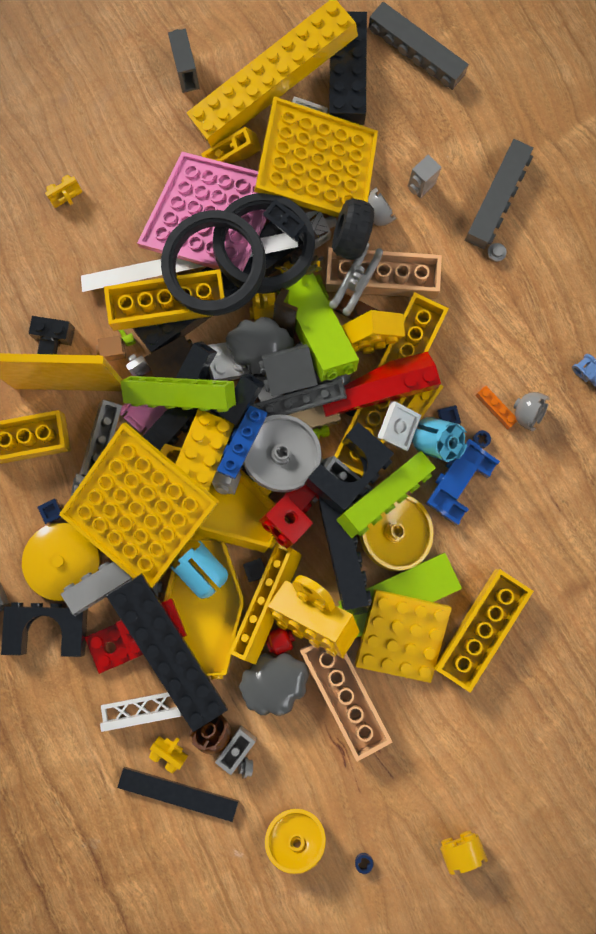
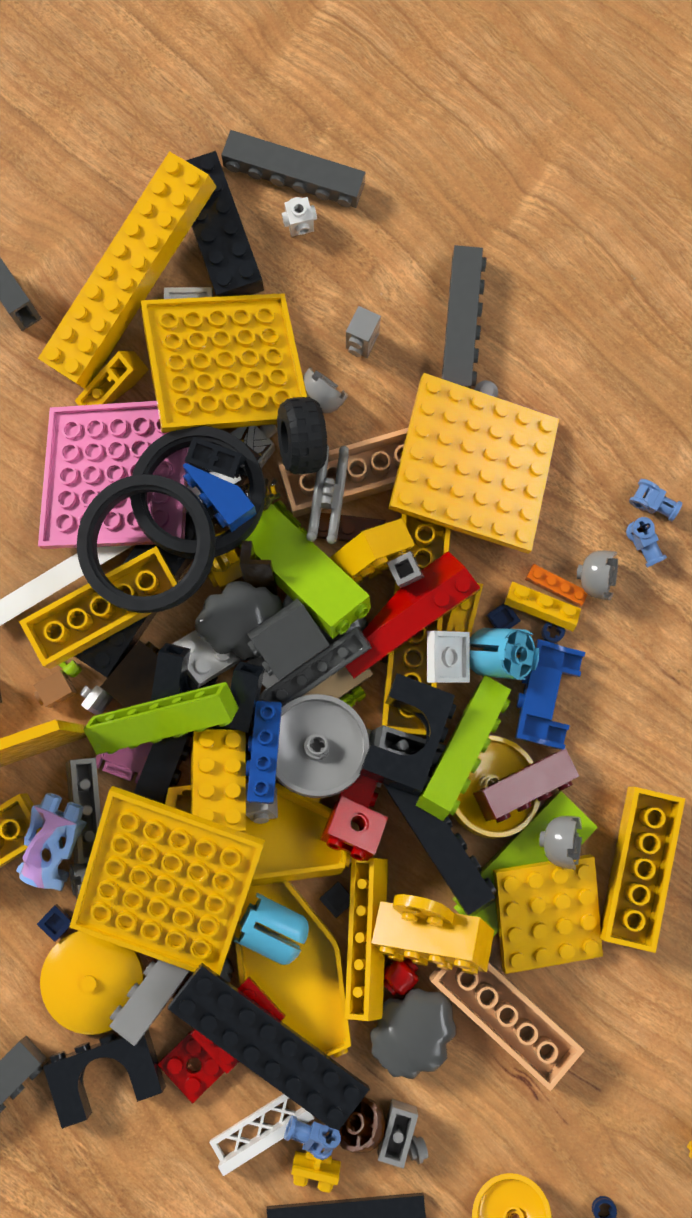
camera: 20 degrees left, 0 degrees up
(68, 441) = (54, 826): none -> light blue hips
(175, 728) = (313, 1137): none -> medium blue connector
(281, 251) = (226, 499): none -> blue slope
(391, 351) = (405, 570): none -> light grey brick
(409, 80) = (299, 216): none -> white brick
(421, 538) = (526, 785): none -> brick
(432, 587) = (562, 841): none -> light grey cylinder
(470, 297) = (474, 464): none -> yellow plate
(481, 418) = (542, 606): none -> yellow plate
(574, 398) = (645, 540): none -> medium blue connector

